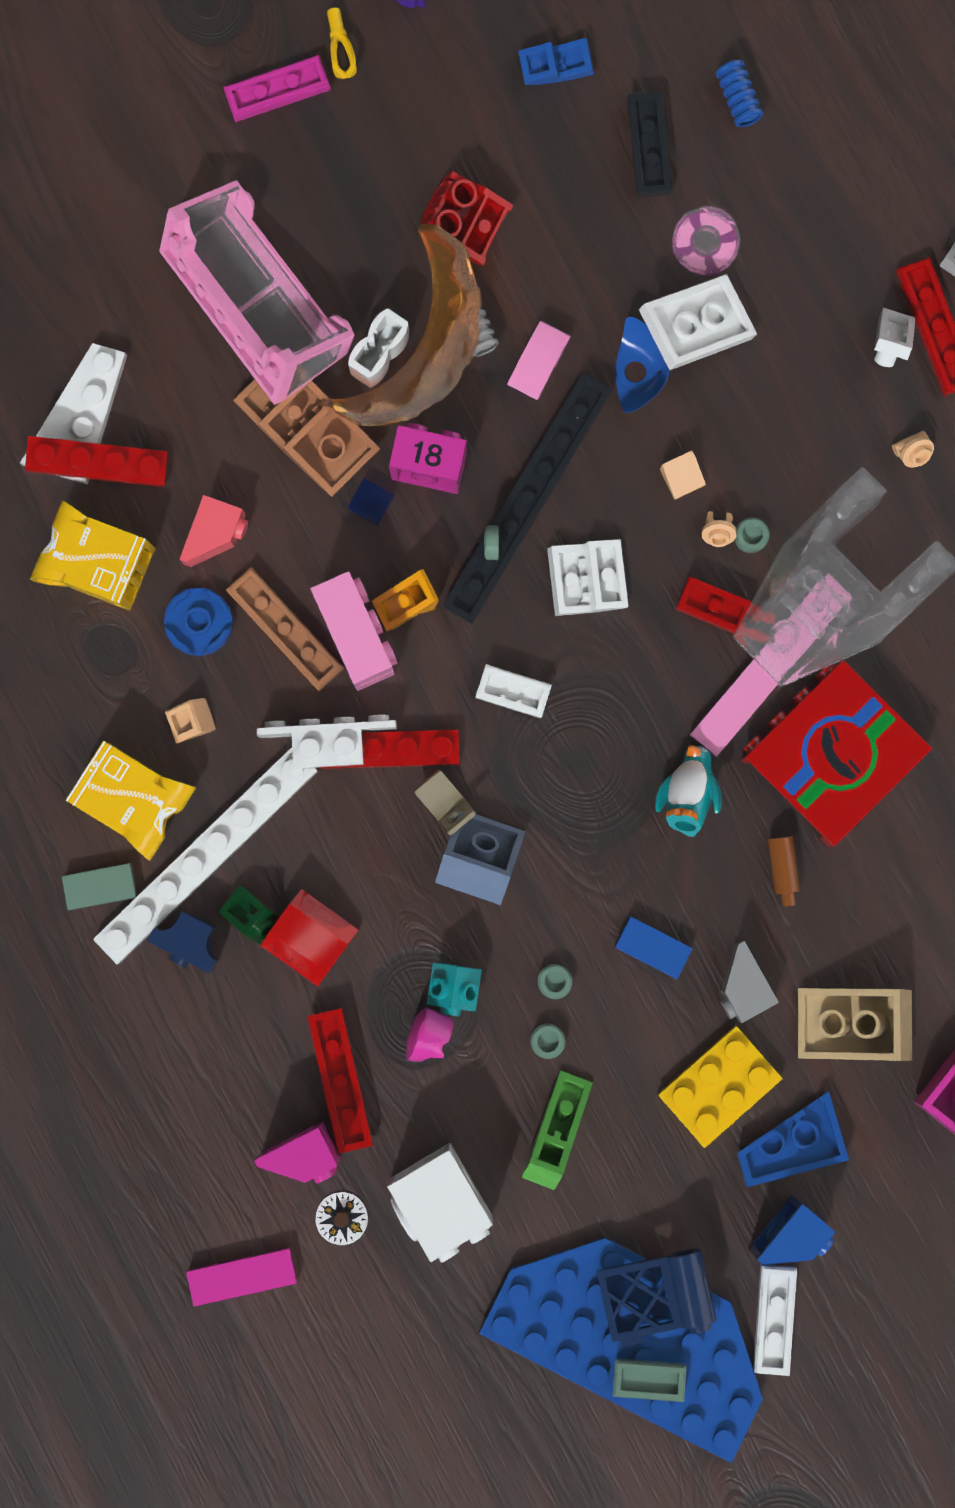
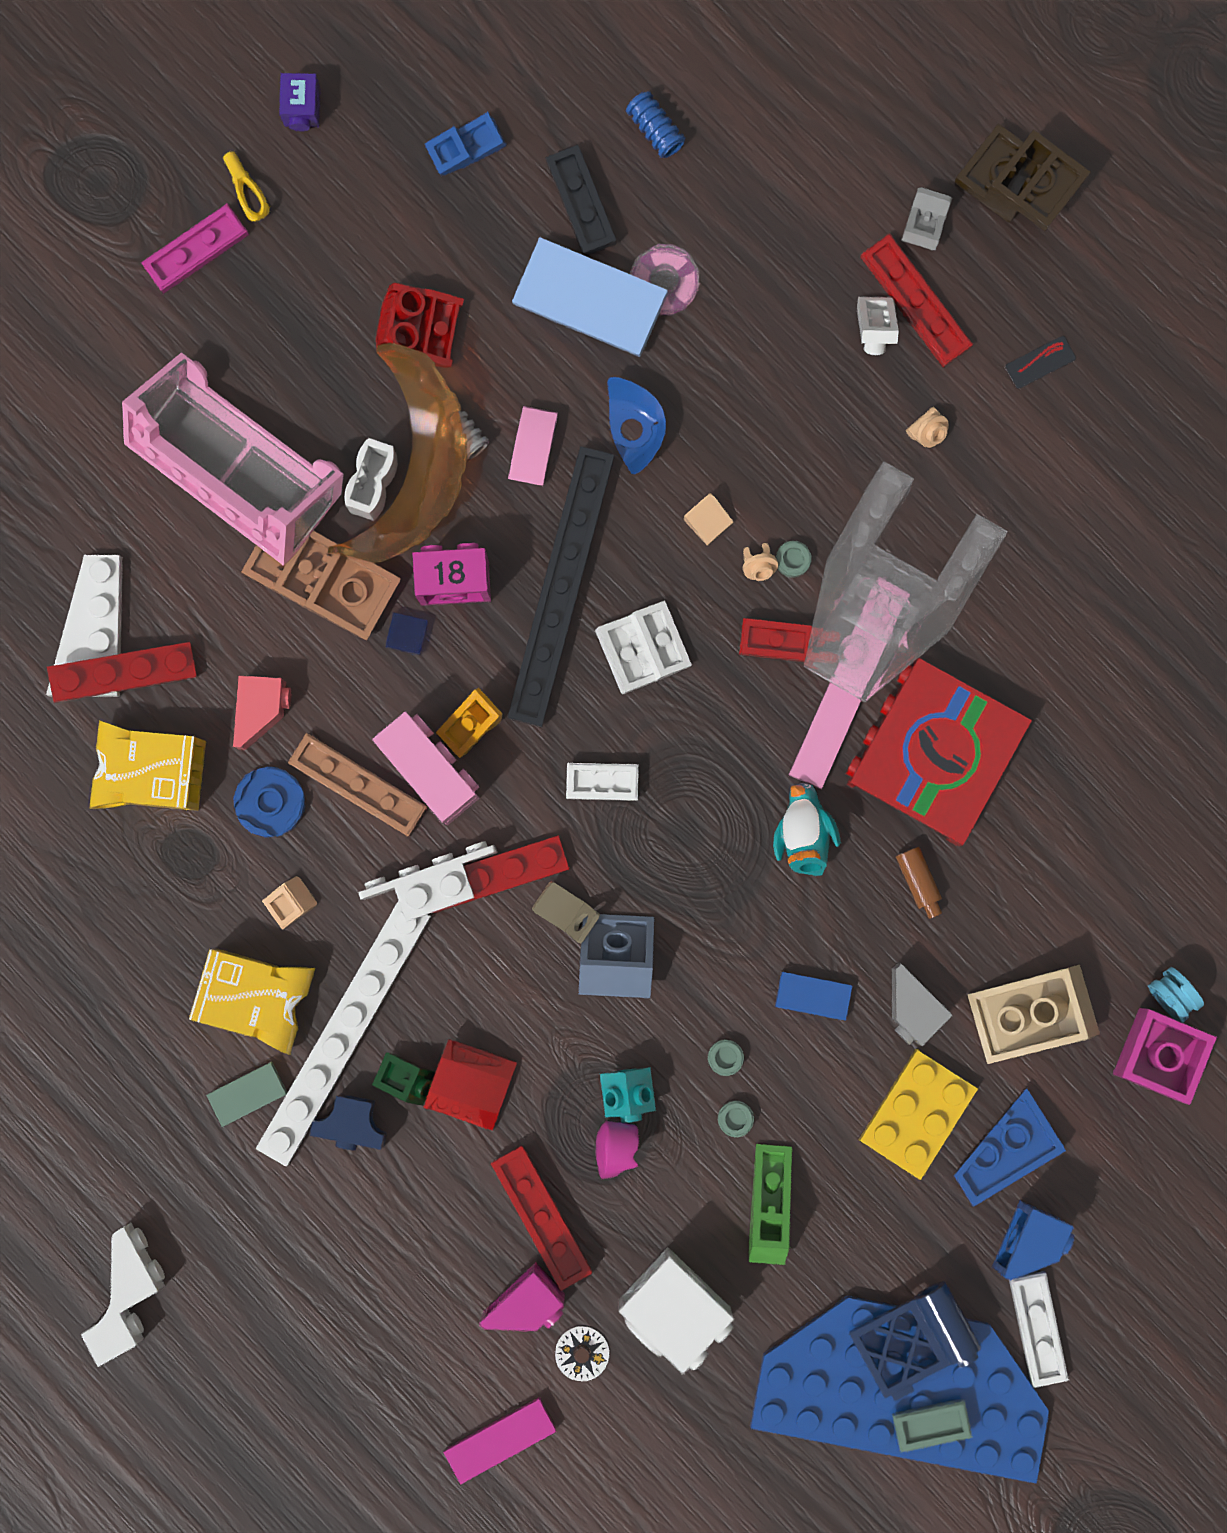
camera: 15 degrees left, 0 degrees up
(491, 542) = (538, 641): sand green tile -> none
(631, 236) = (590, 297): none -> light blue tile
(697, 322) = (679, 363): white plate -> none

